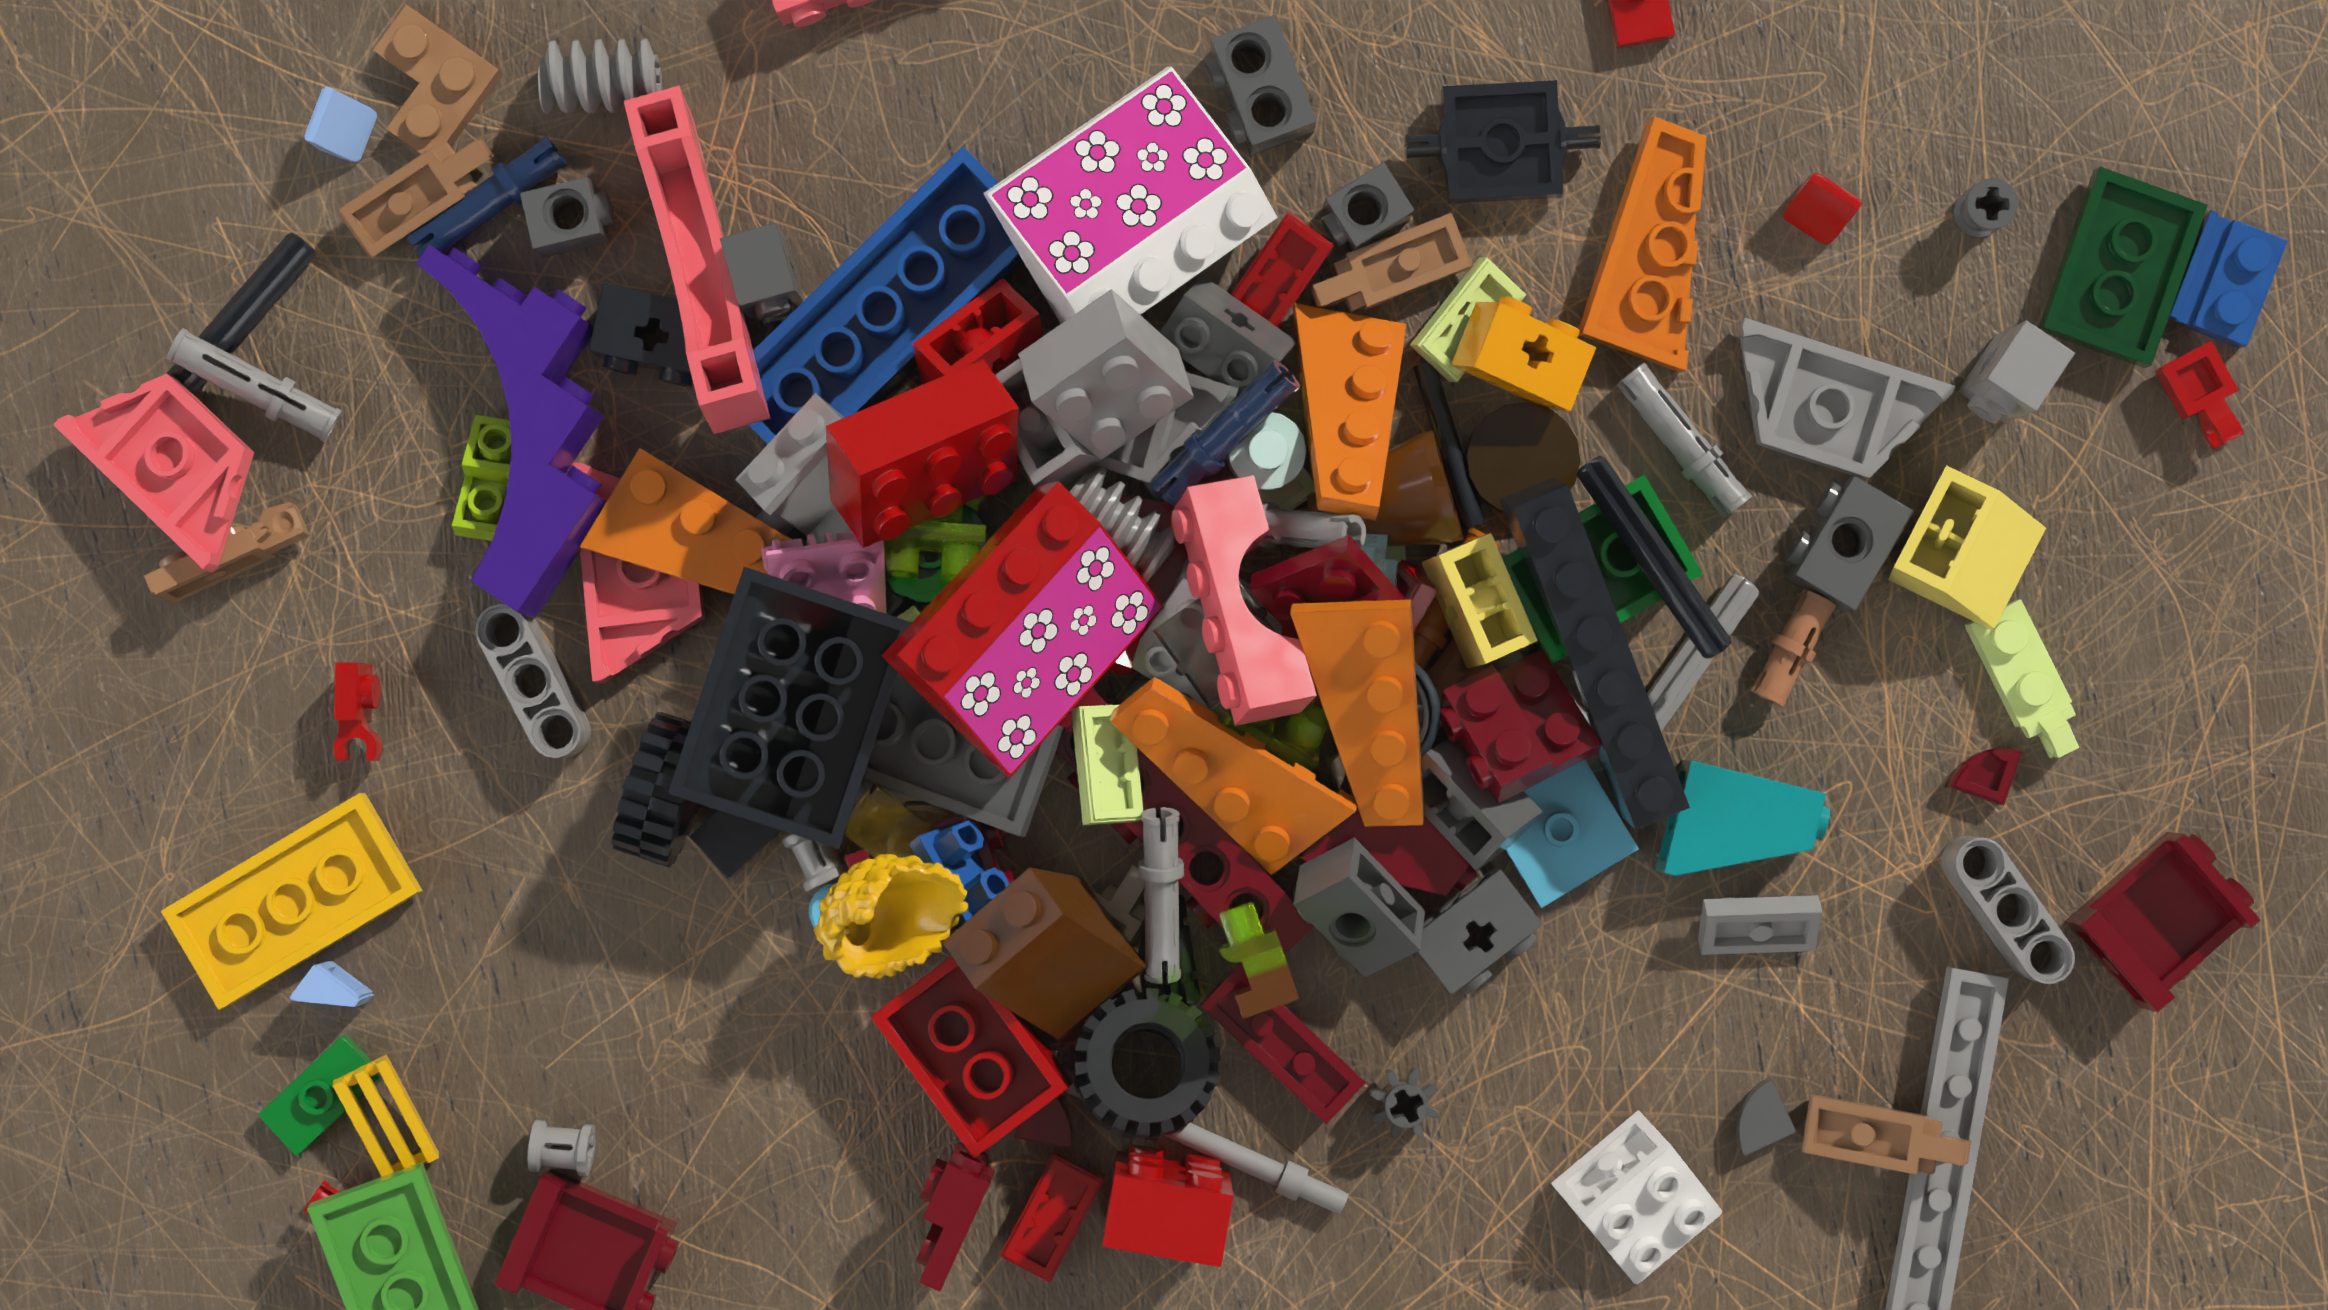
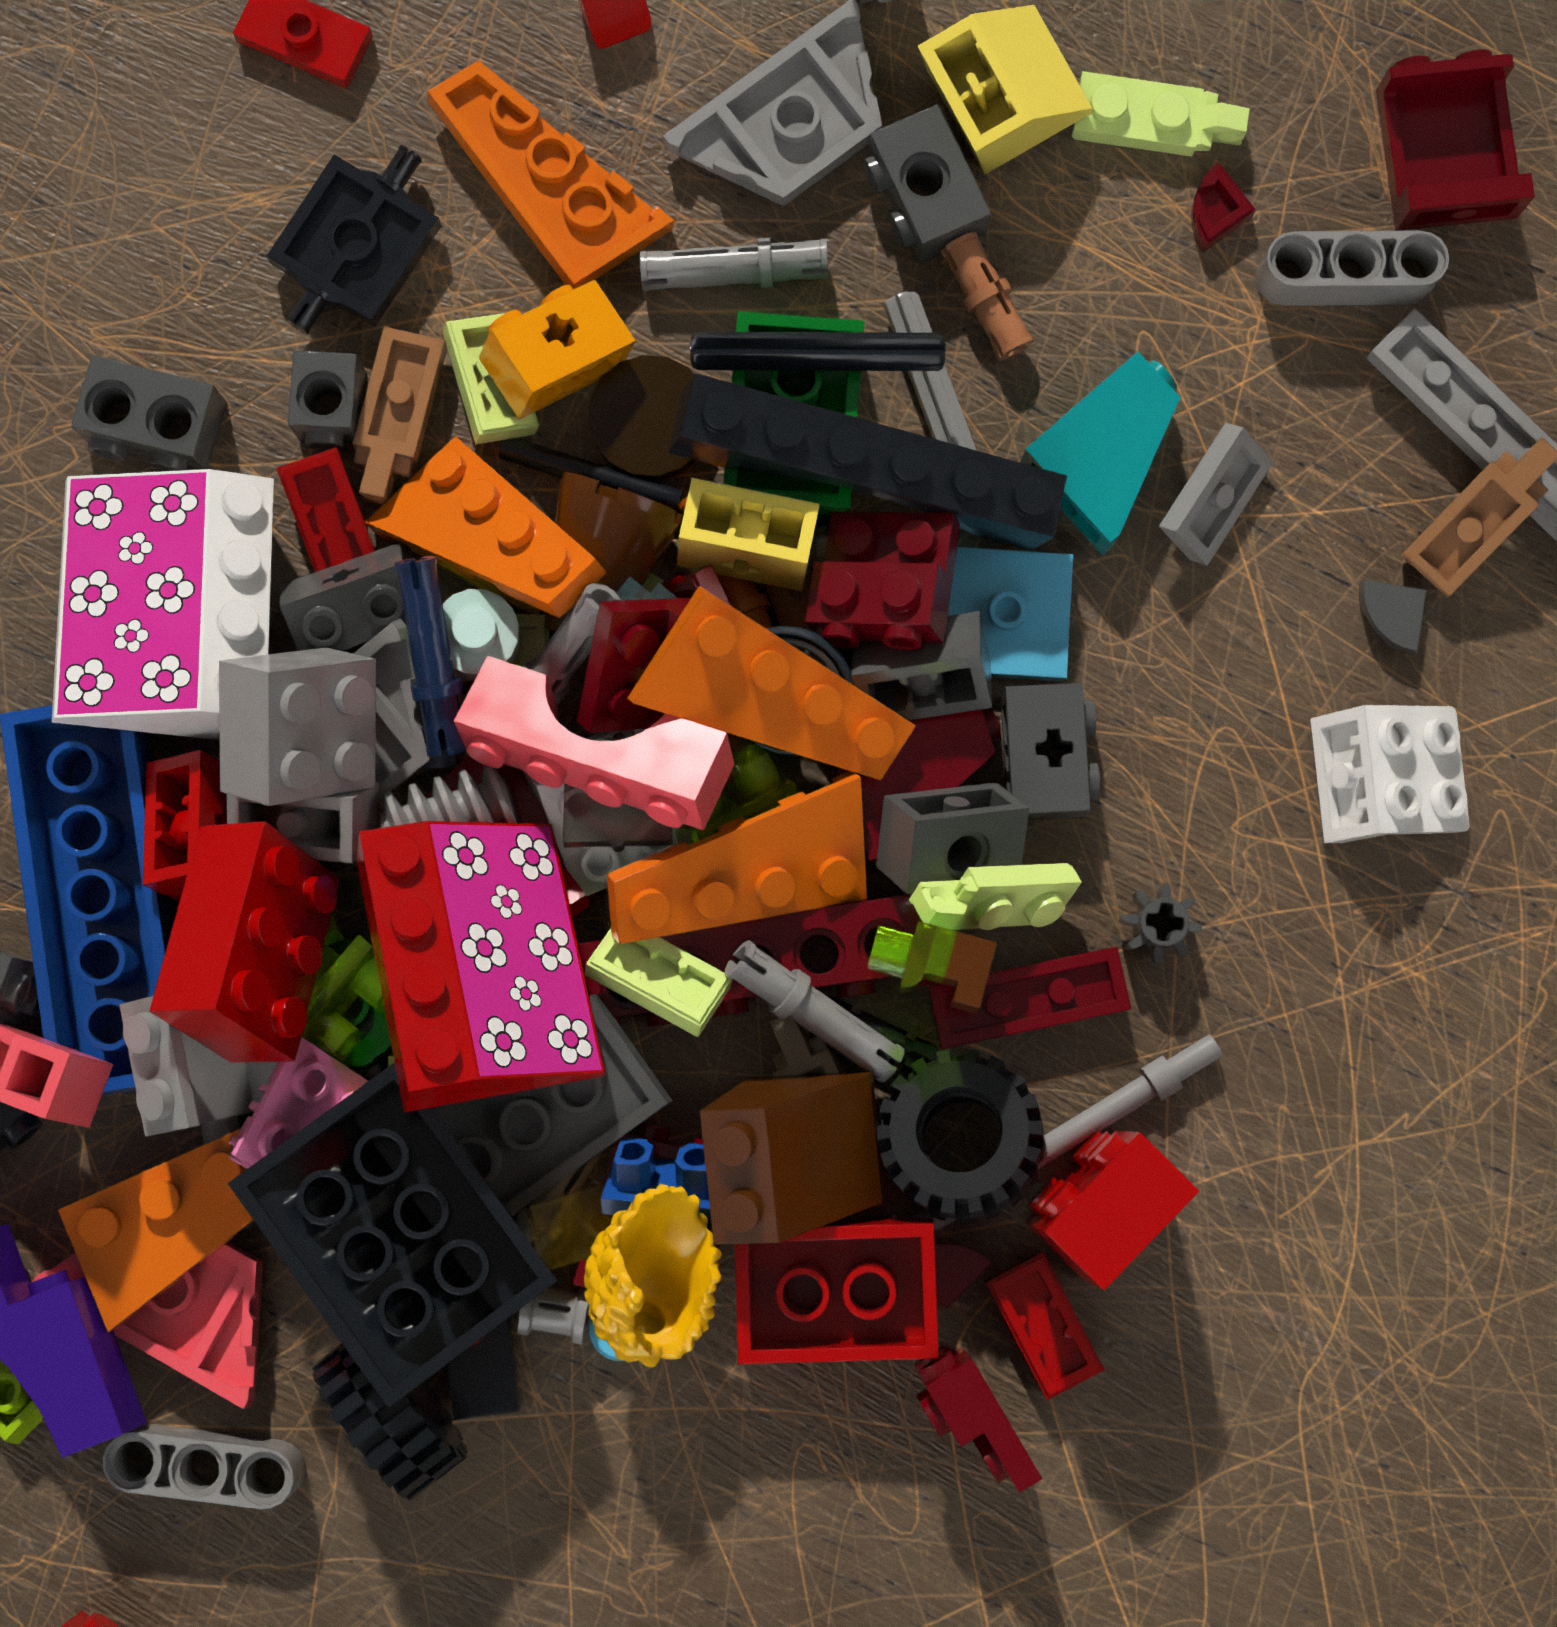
camera: 50 degrees left, 5 degrees down
(1338, 971) = (998, 897): none -> yellowish green hinge

